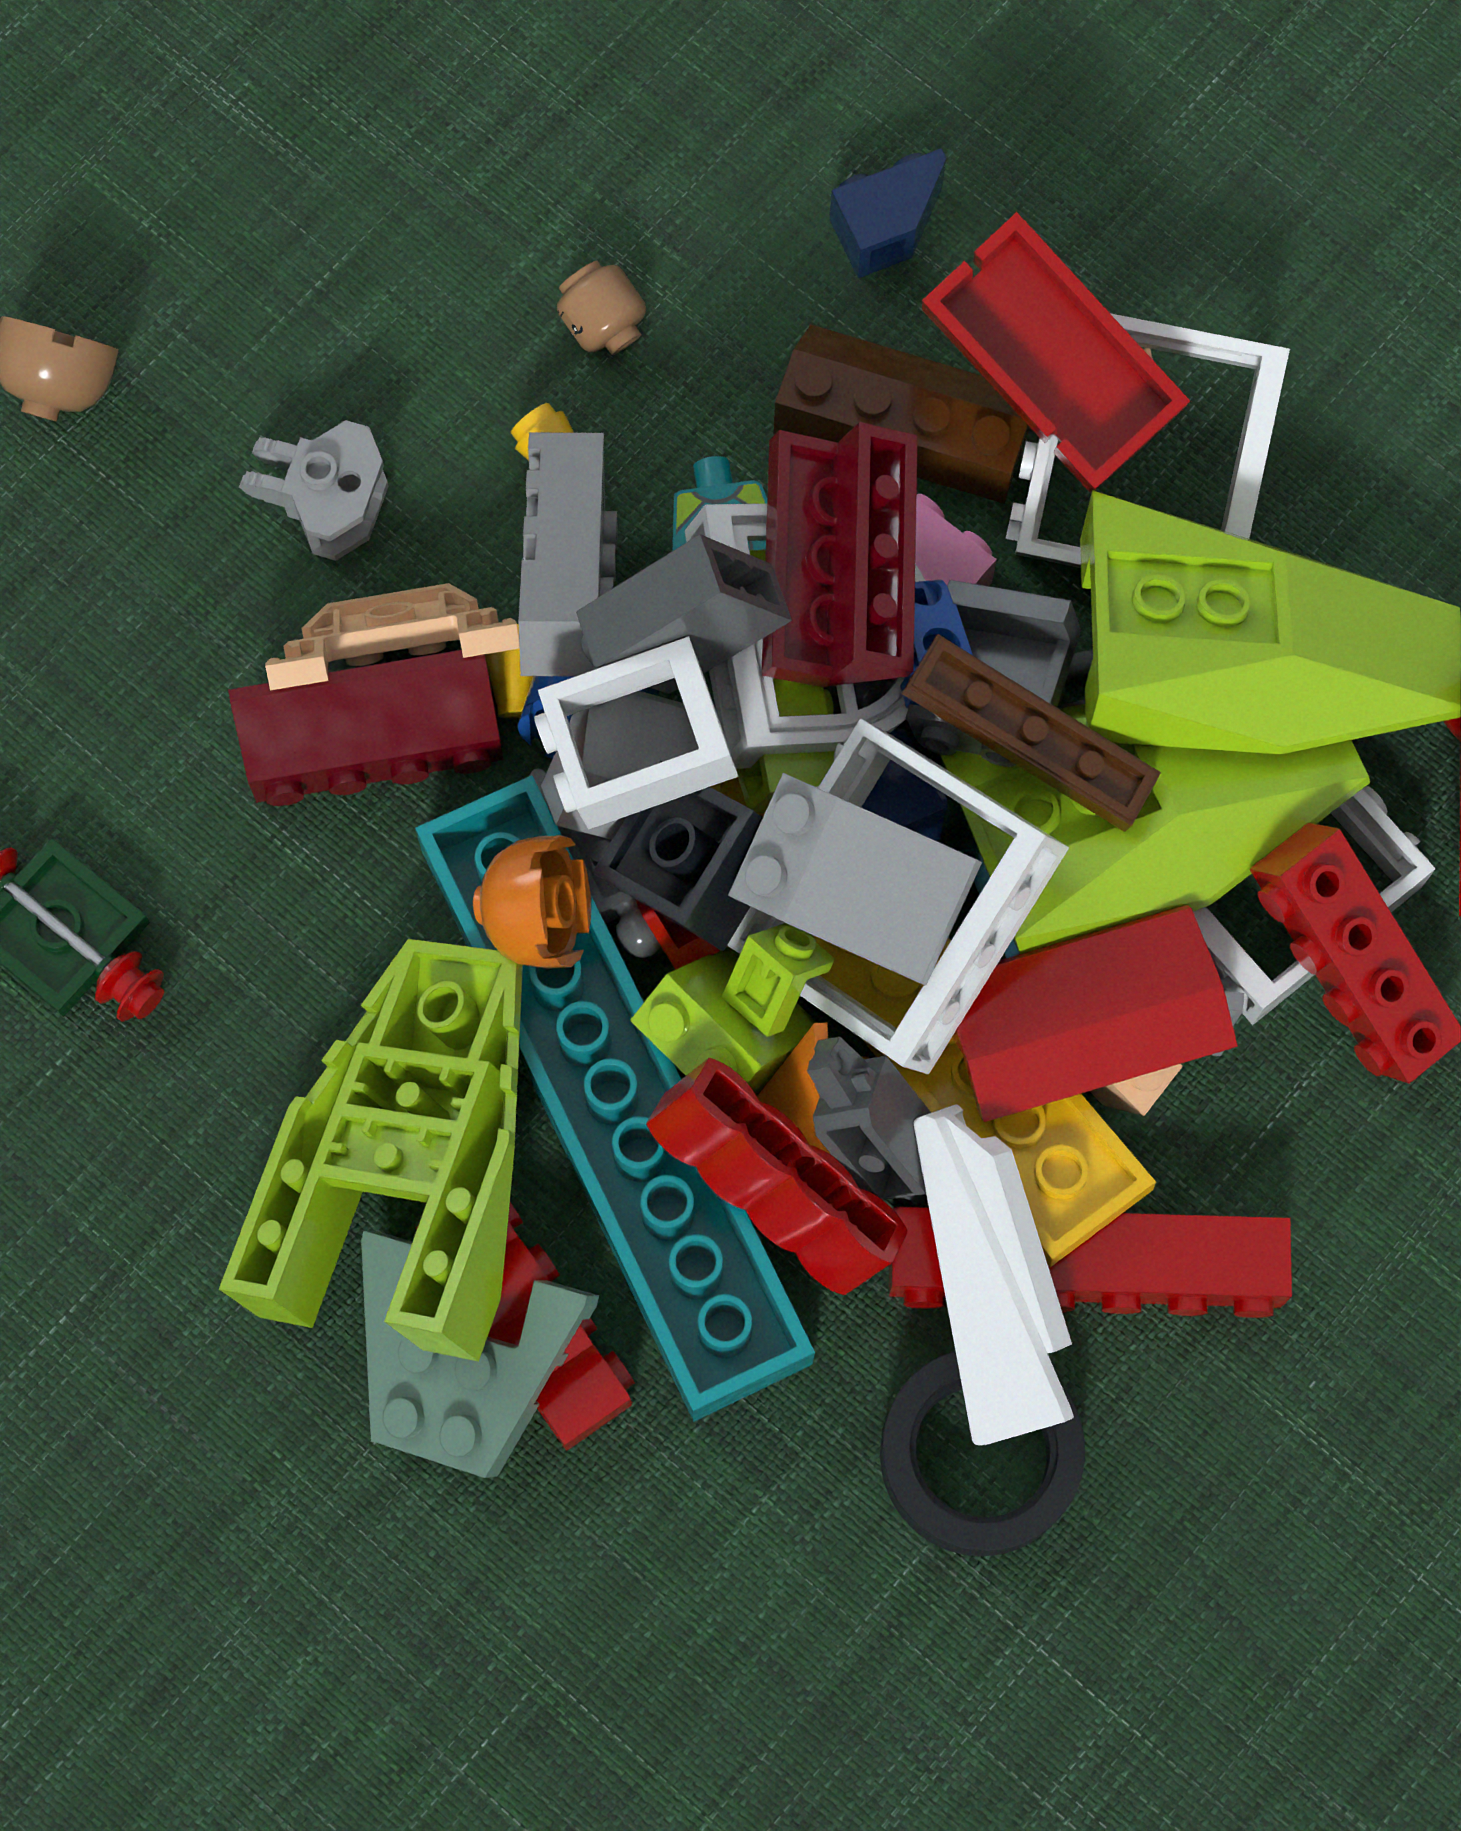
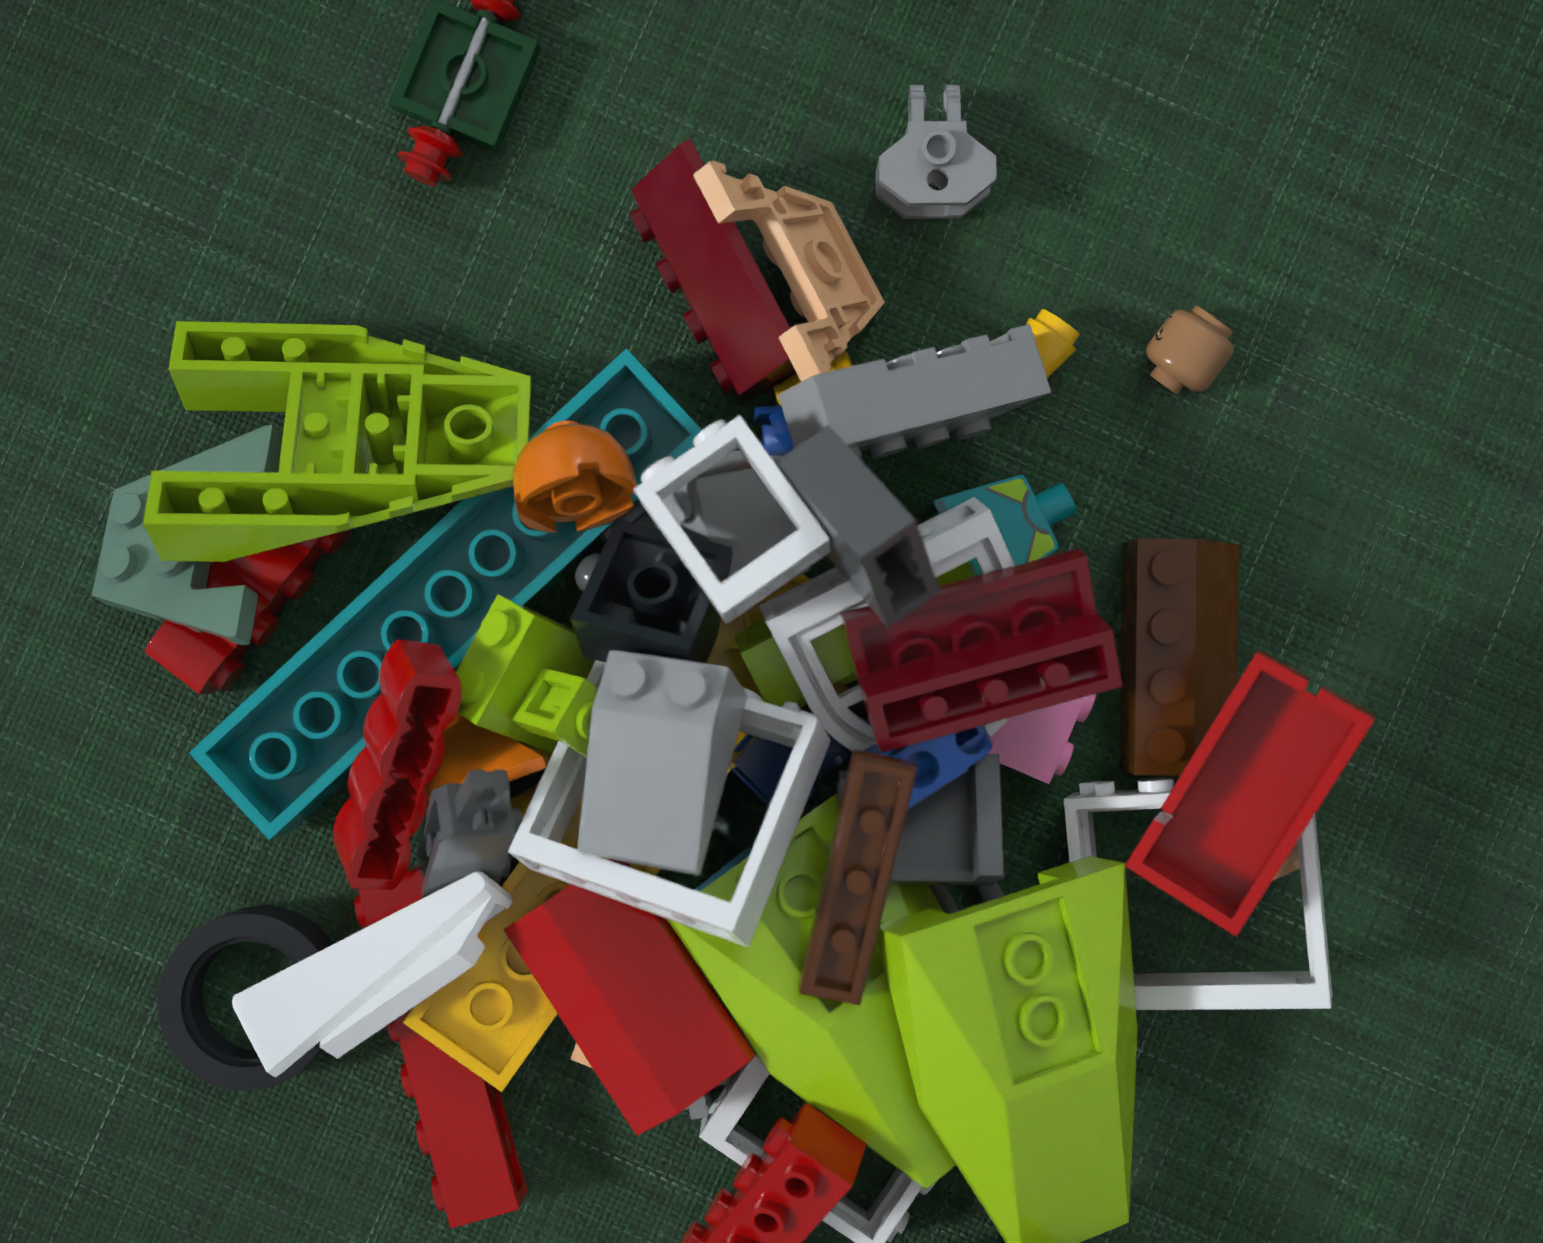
camera: 75 degrees right, 15 degrees up
(886, 213) = (1371, 581): dark blue slope -> none

